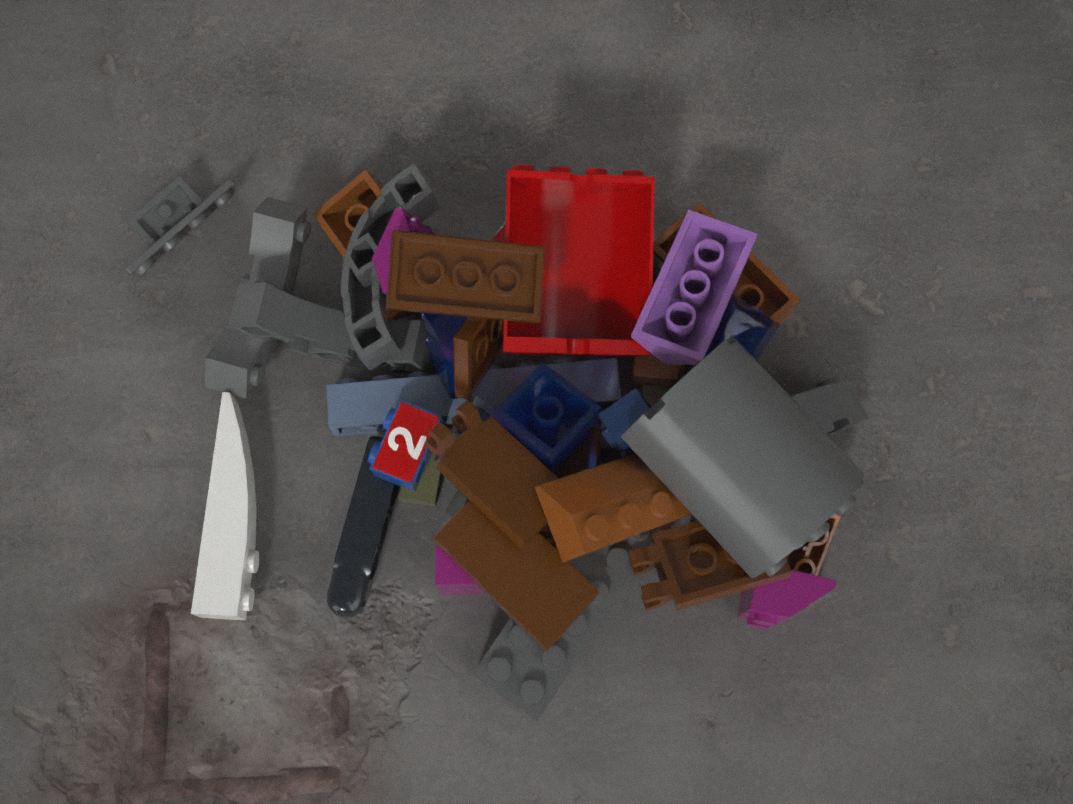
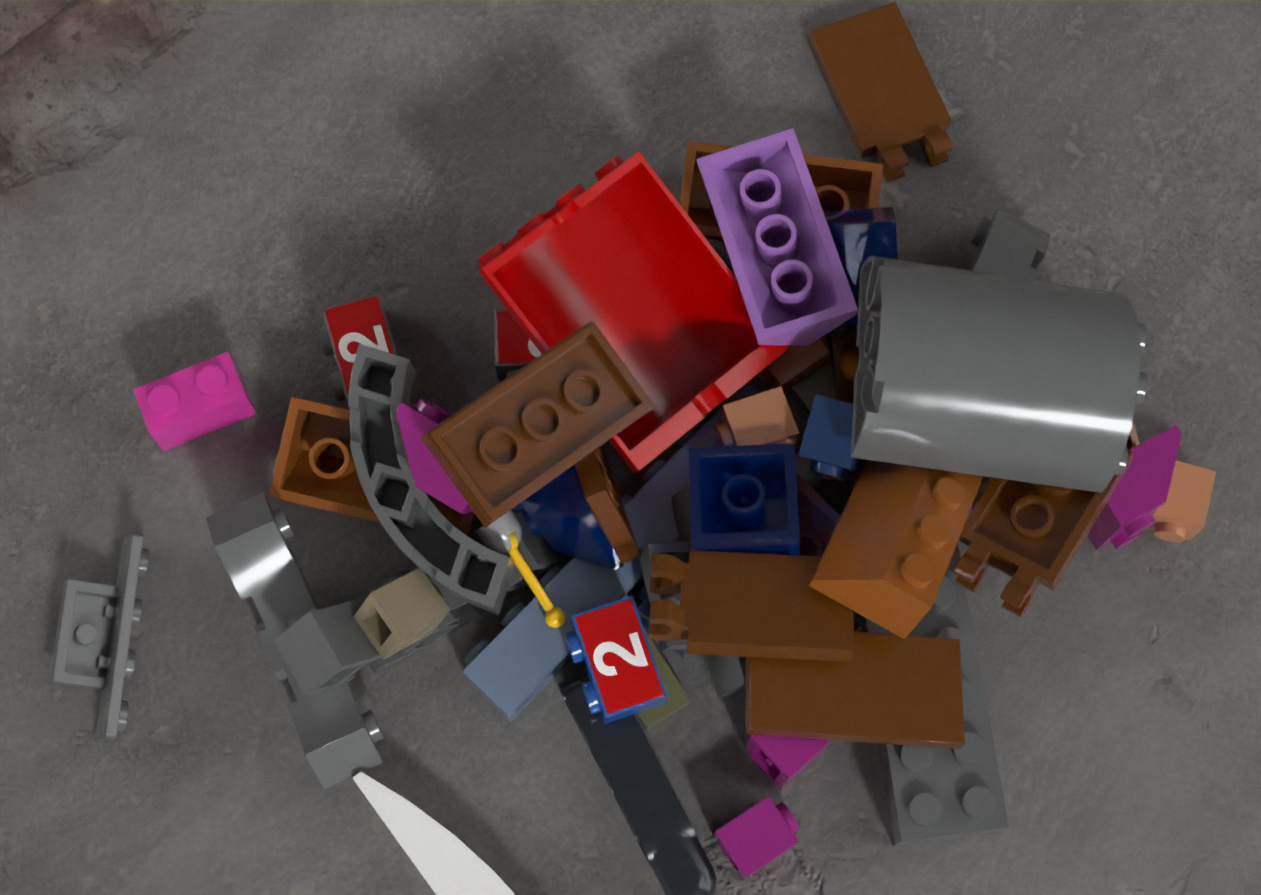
camera: 40 degrees left, 0 degrees up
(316, 325) = (401, 613): none -> dark tan brick
(322, 138) = (194, 401): none -> dark pink brick
(402, 606) = (757, 837): none -> magenta brick
(406, 329) = (504, 537): none -> hinge
(442, 172) = (346, 327): none -> brick
(597, 381) = (757, 421): none -> nougat brick
(807, 629) = (1186, 503): none -> nougat brick
(846, 263) = (882, 88): none -> reddish brown tile

